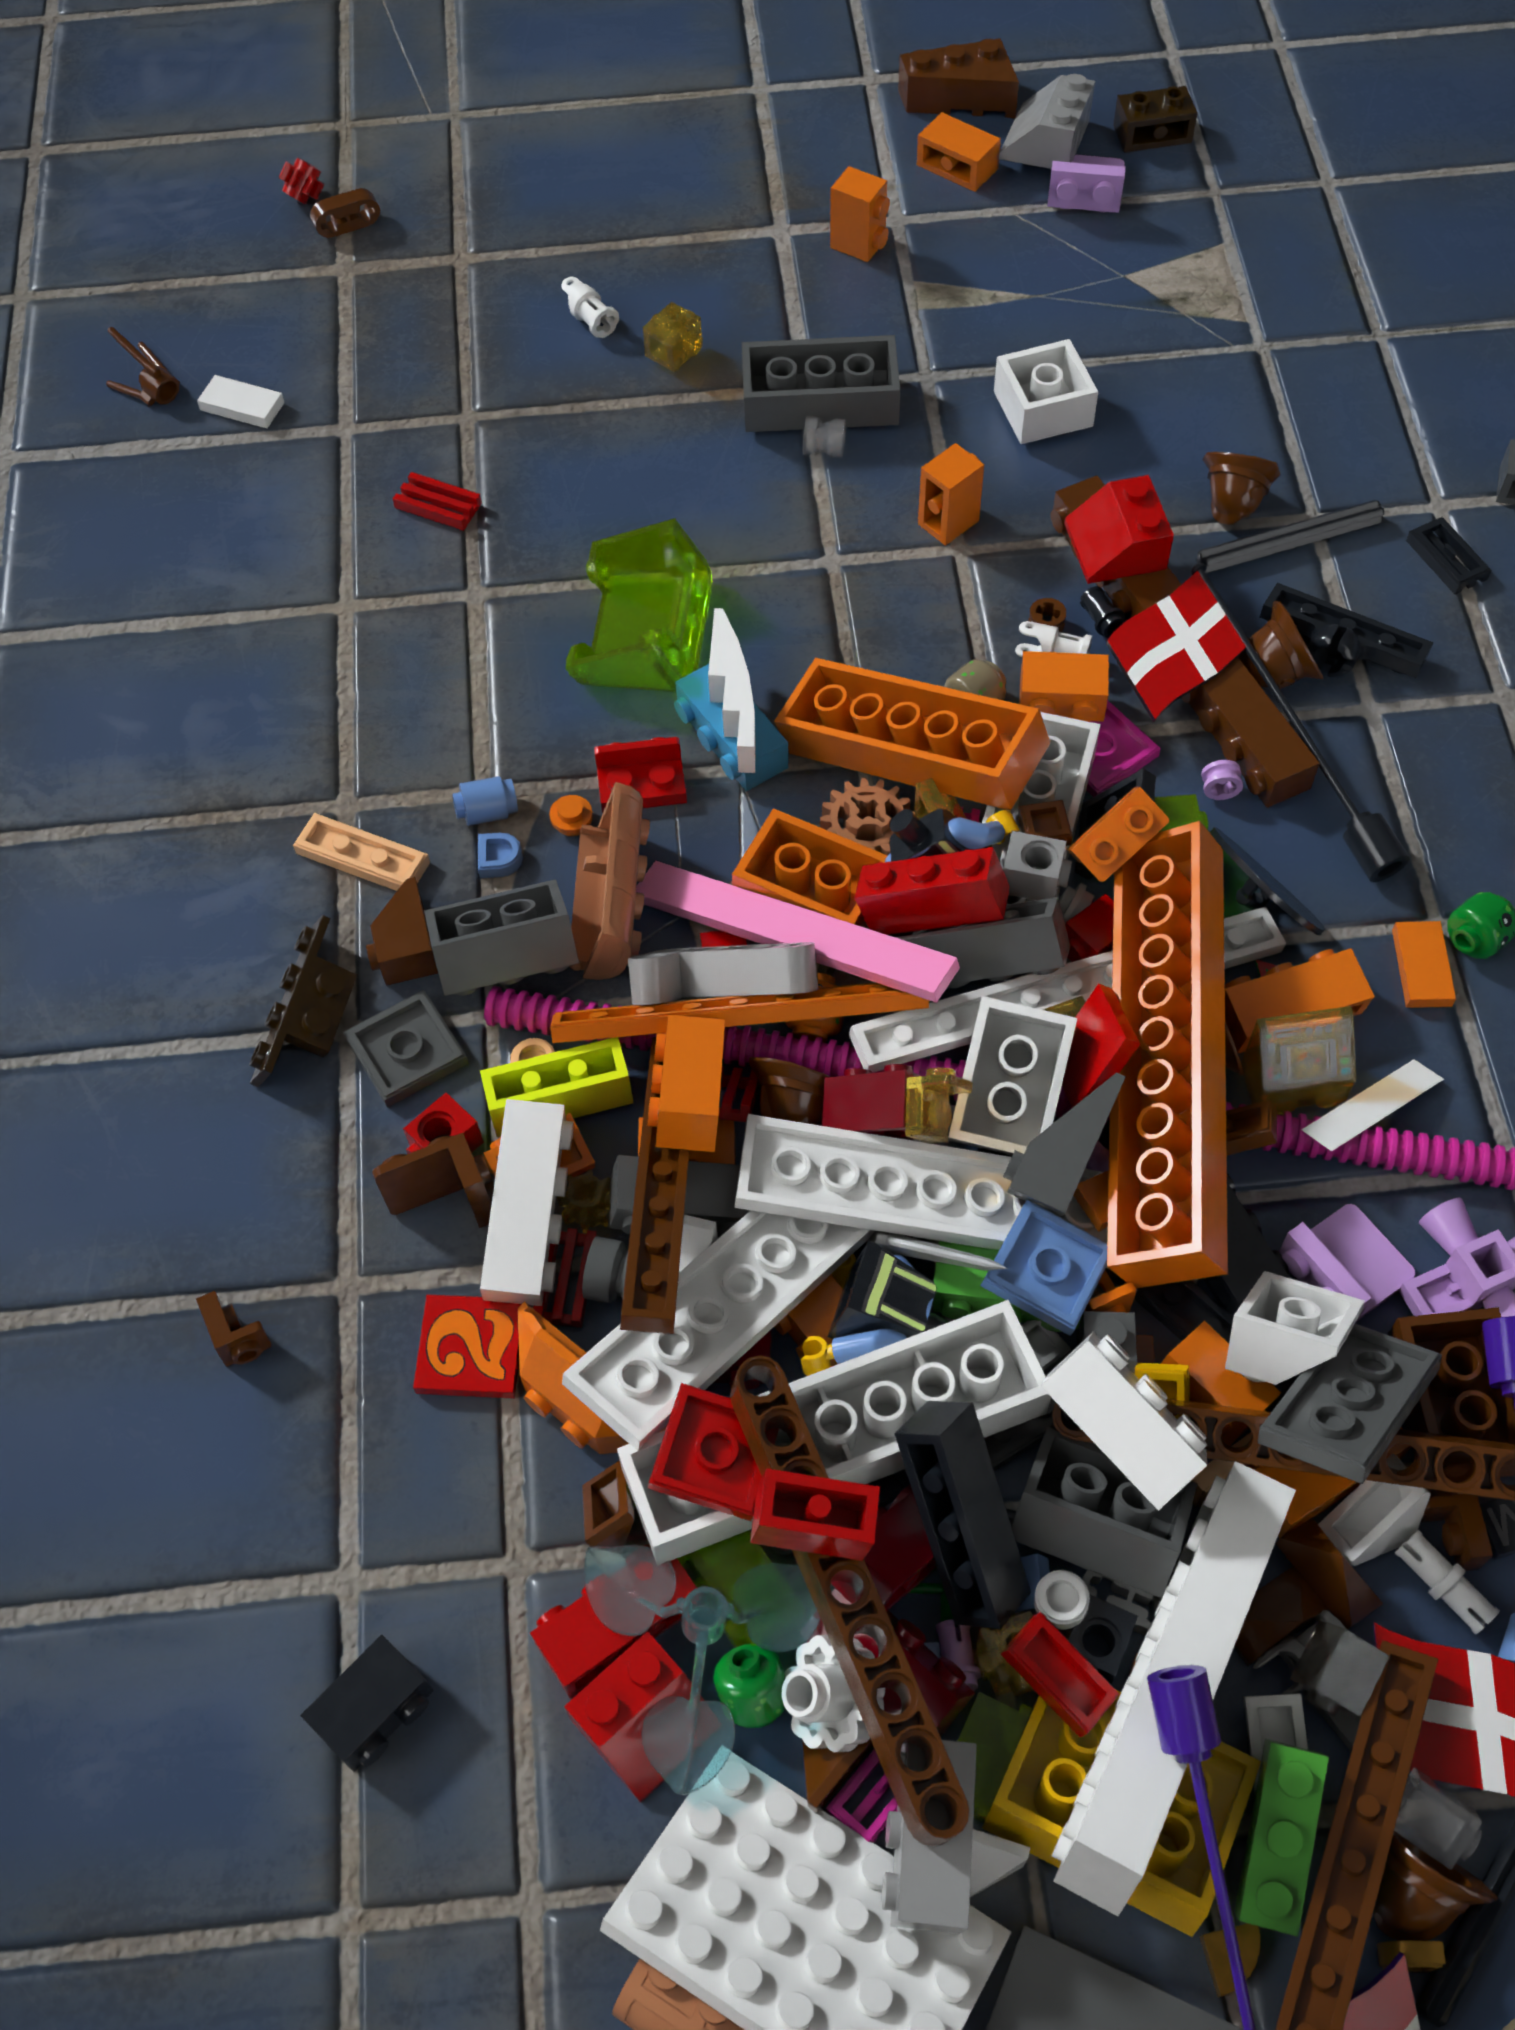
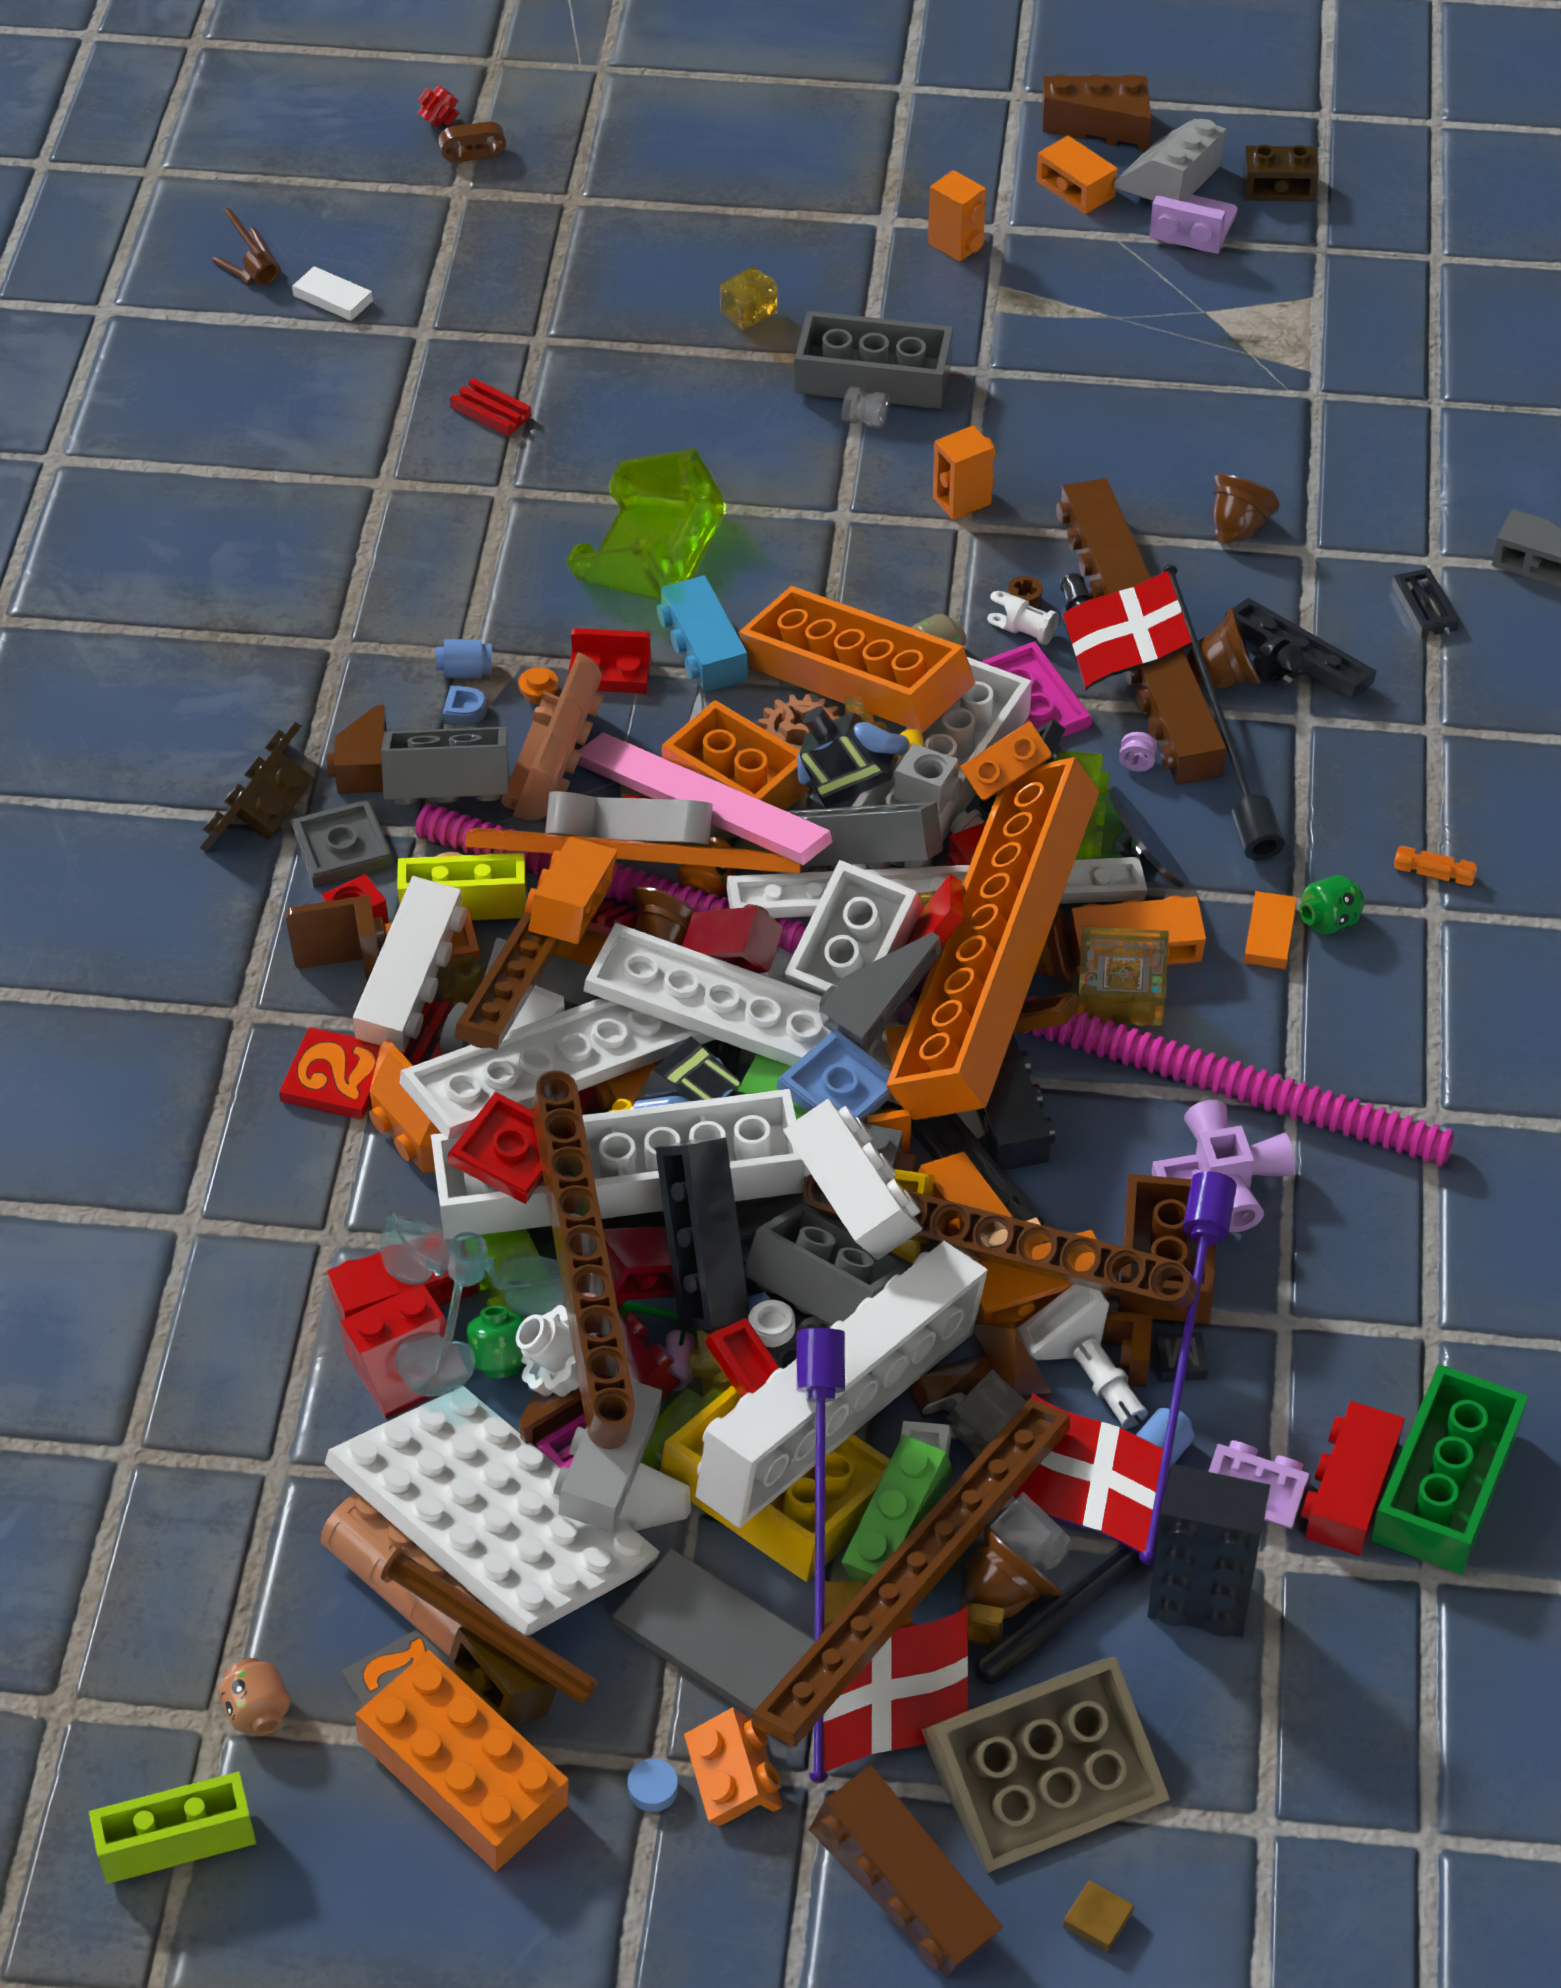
camera: 10 degrees right, 10 degrees down
(230, 1339) = (139, 1031): reddish brown bracket -> none
(360, 852) = (341, 683): light nougat tile -> none
(368, 1704) = (182, 1302): black brick -> none
(587, 306) = (678, 260): white piece -> none
(607, 1508) = (417, 1200): reddish brown slope -> none
(731, 686) = (705, 600): white slope -> none
(815, 1514) = (567, 1174): red brick -> none
(906, 1246) = (738, 1056): light grey bar -> none
(928, 1104) = (773, 938): clear yellow bracket -> none
(933, 891) = (828, 779): red brick -> none
(1045, 391) = (1084, 399): white brick -> none
(1046, 820) = (954, 744): reddish brown tile -> none
(1065, 684) = (1016, 646): orange brick -> none
(1121, 531) = (1105, 526): red slope -> none
(1288, 1328) = (1022, 1158): white slope -> none
(1291, 536) = (1278, 562): black axle -> none
(1347, 1257) = (1107, 1140): lavender bracket -> none
(1351, 1404) = (1053, 1208): dark grey tile -> none
(1372, 1105) = (1177, 1024): white sticker -> none

